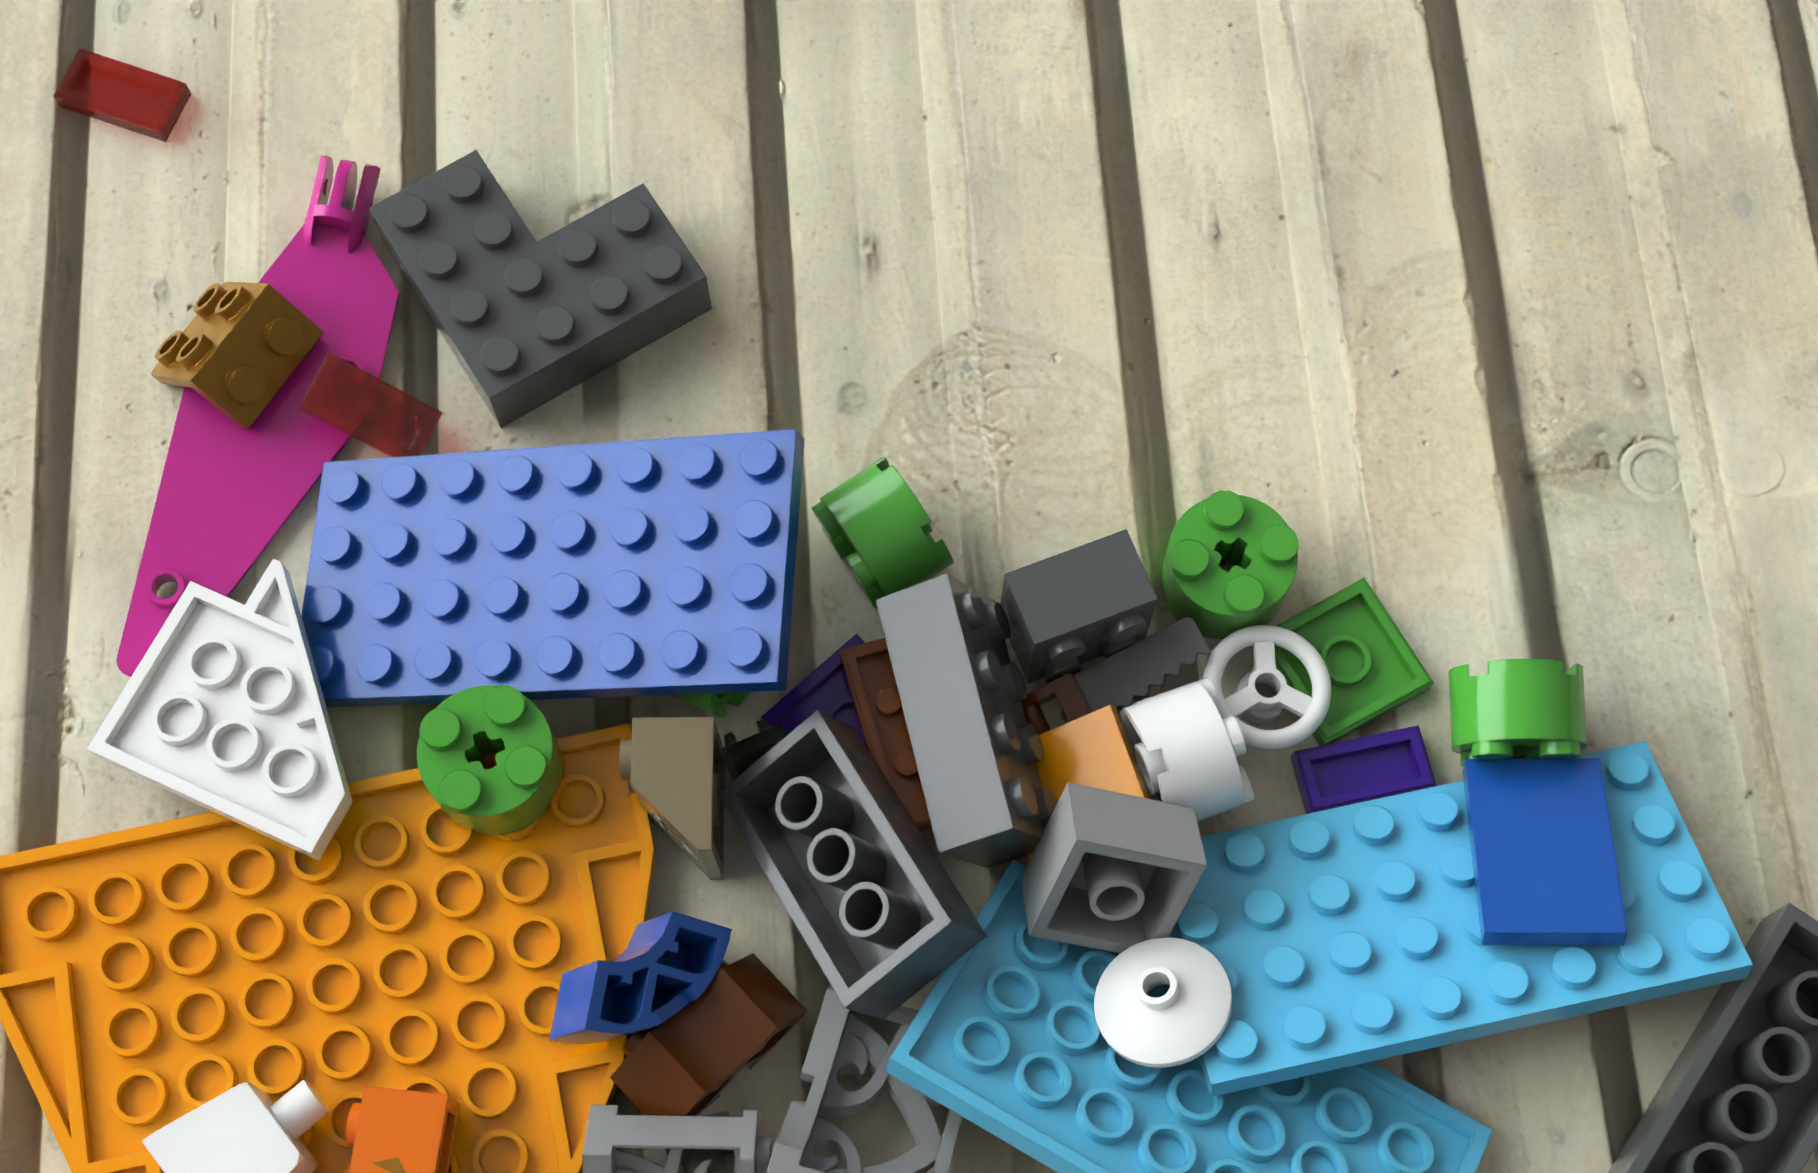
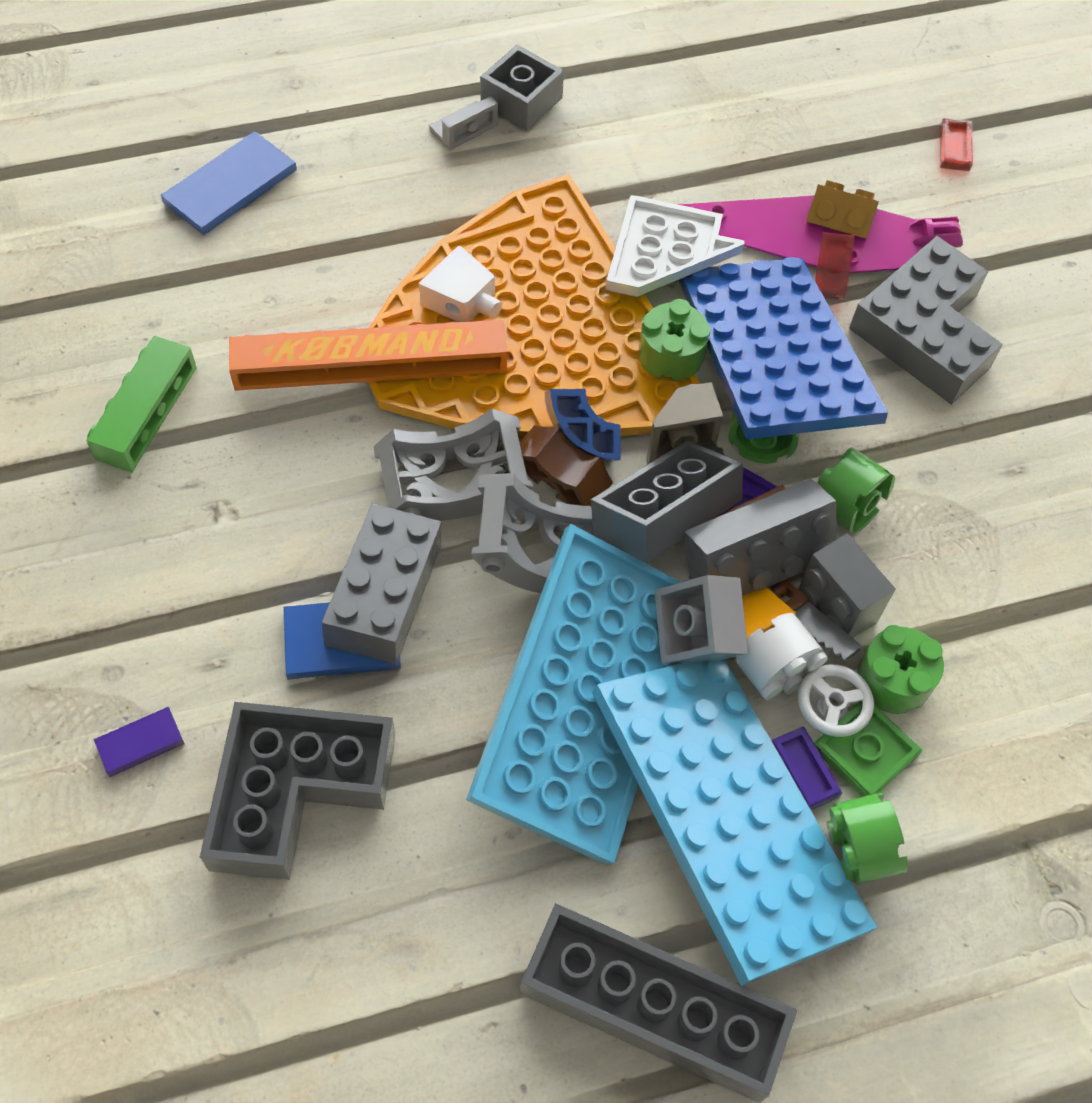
camera: 75 degrees right, 10 degrees down
(1169, 1027) = (636, 659): white dish -> none
(1543, 852) = (783, 853): blue tile -> none

